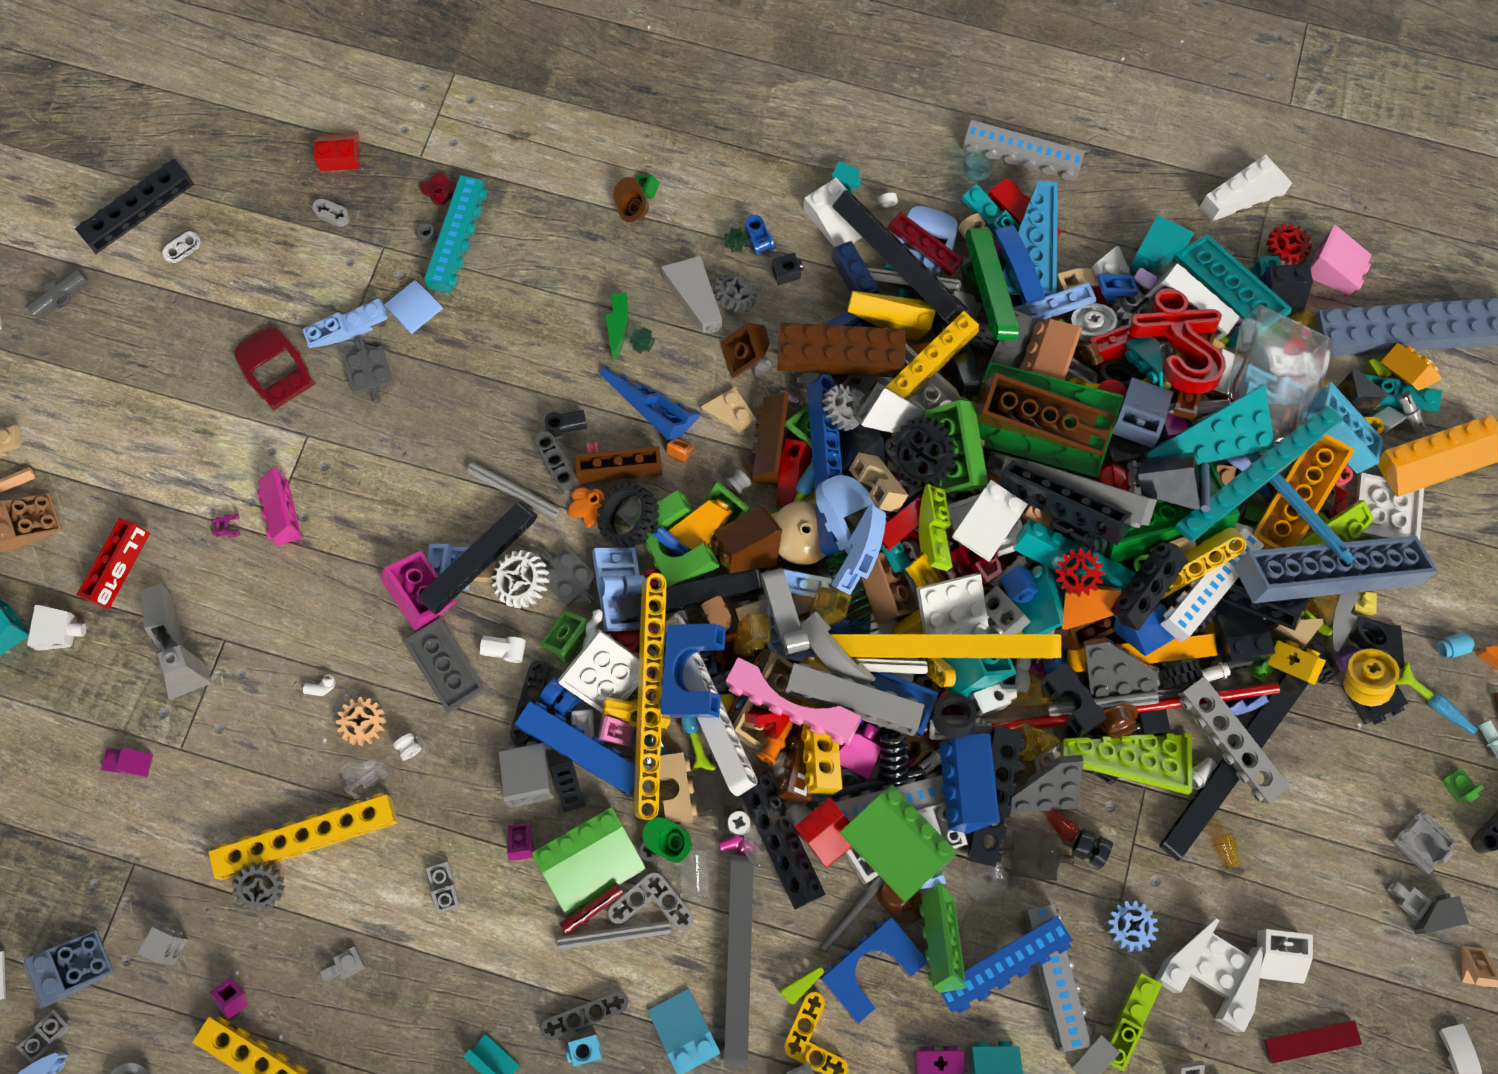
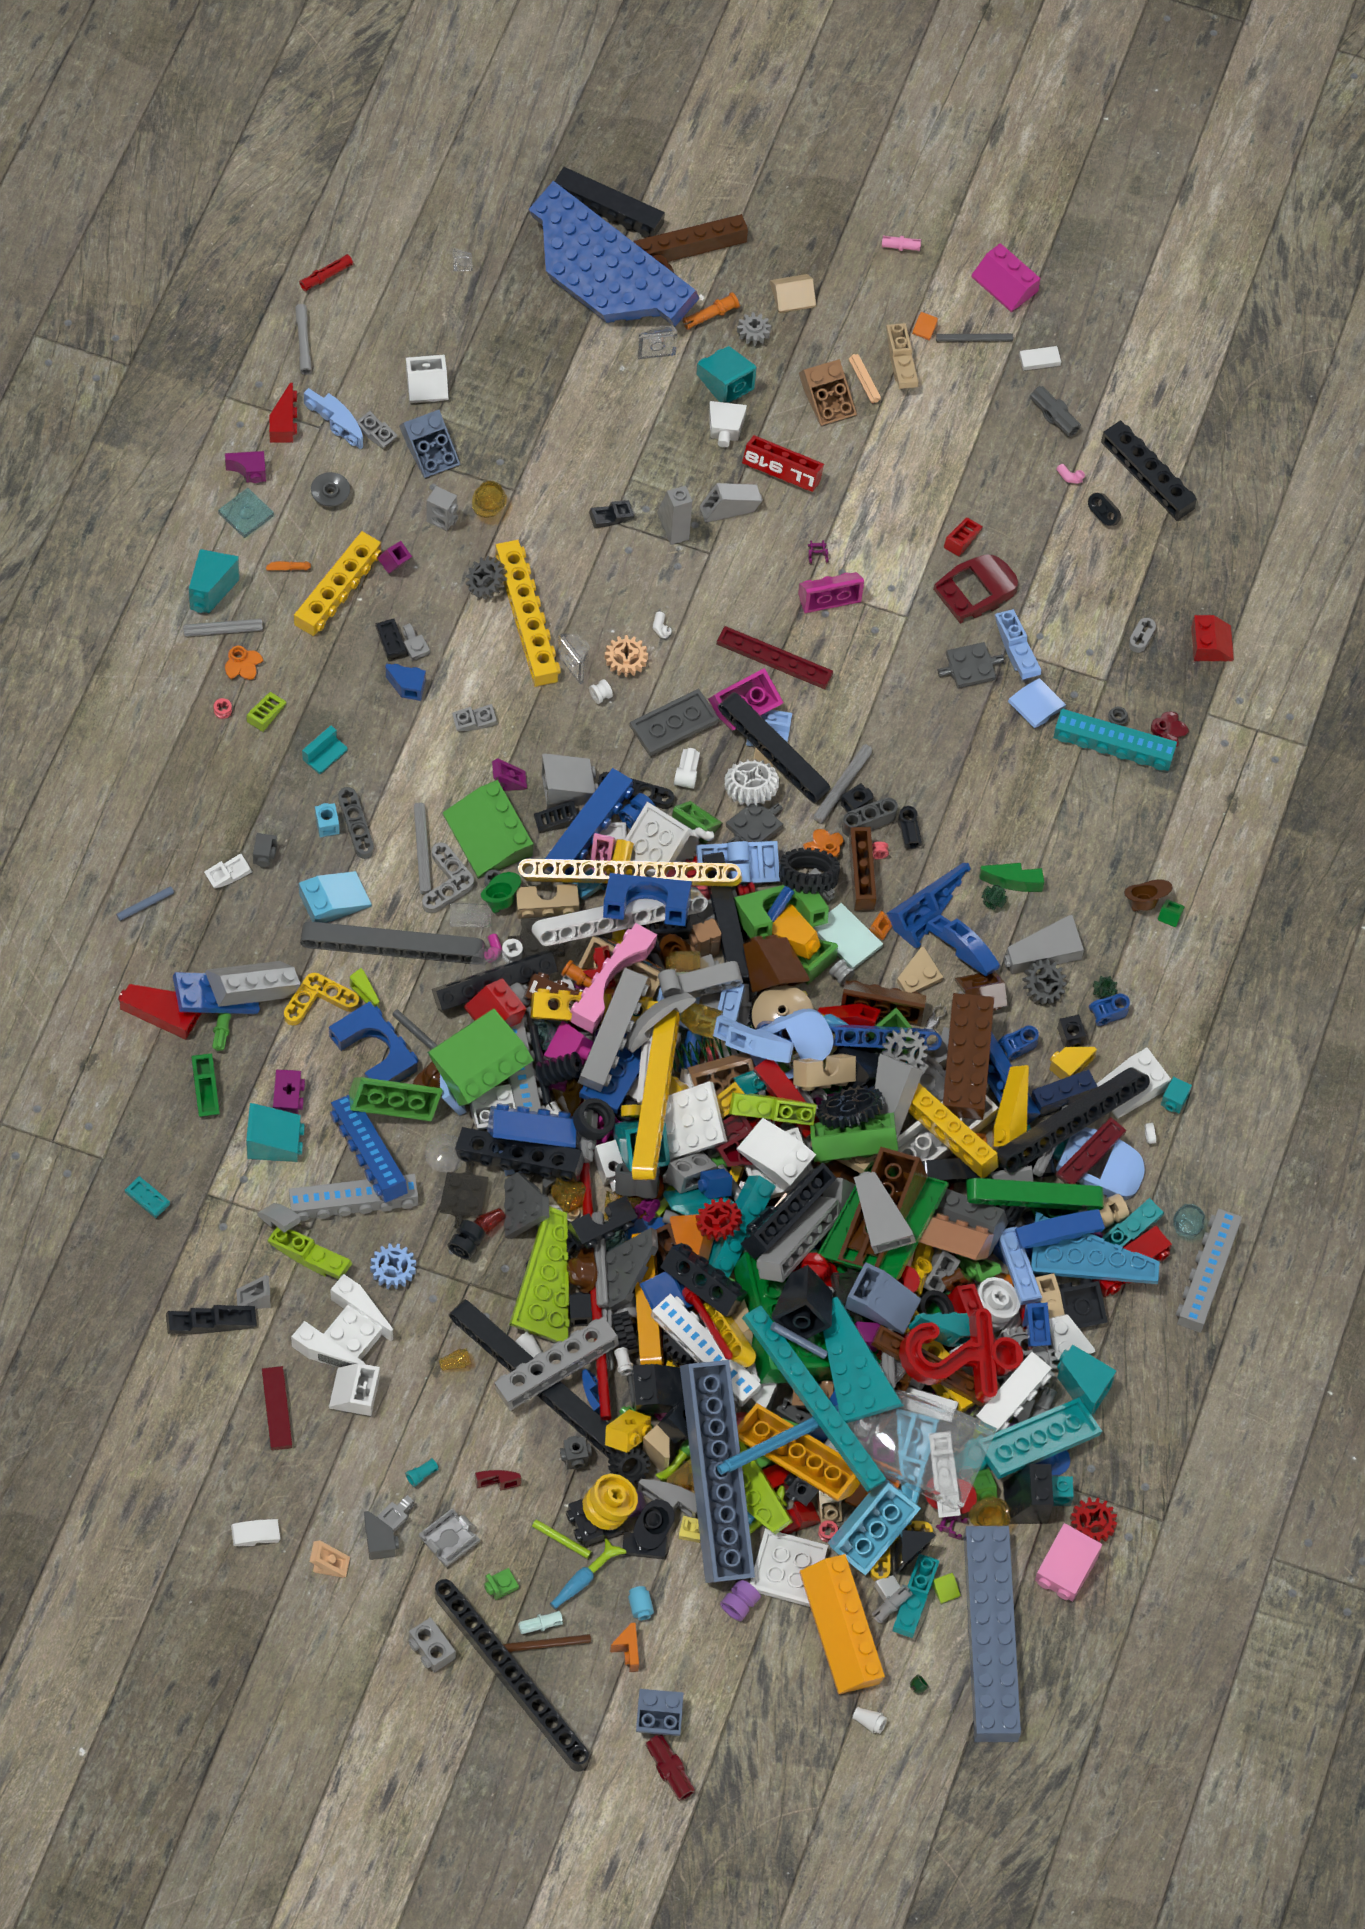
camera: 90 degrees right, 10 degrees down
(126, 762) = (602, 481): magenta slope -> none
(139, 279) = (1070, 477): none -> bright pink arm
(152, 890) = (488, 499): none -> clear yellow piece
(172, 749) = (611, 515): none -> black slope
(219, 389) = (953, 540): none -> red slope
(338, 994) = (390, 638): none -> black plate
(358, 566) = (774, 657): none -> dark red tile
(398, 968) = (406, 681): none -> blue slope
(539, 481) = (858, 792): none -> black brick
(583, 914) = (434, 814): dark red pin -> none
(694, 477) = (853, 938): none -> light aqua tile
(697, 364) = (966, 942): none -> blue slope
(803, 315) = (1016, 1044): none -> blue piece
(820, 268) = (1071, 1060): none -> yellow slope
(1066, 407) = (882, 1218): none -> light grey slope
(1075, 253) = (1083, 1303): none -> black plate
(1145, 278) = (1050, 1356): medium lavender slope -> none
(1200, 575) = (692, 1298): none -> red piece
(1250, 186) = (1159, 1484): white wedge -> none
(1312, 718) = (575, 1452): none -> dark grey brick
(1351, 788) = (504, 1478): none -> dark red slope
(1362, 880) = (418, 1474): none -> teal pin
(1399, 728) = (561, 1539): none -> lime bar
(1411, 367) = (940, 1607): light orange slope -> none
(1439, 552) = (738, 1602): none -> medium lavender wheel
(1478, 389) = (919, 1683): none -> dark green hinge

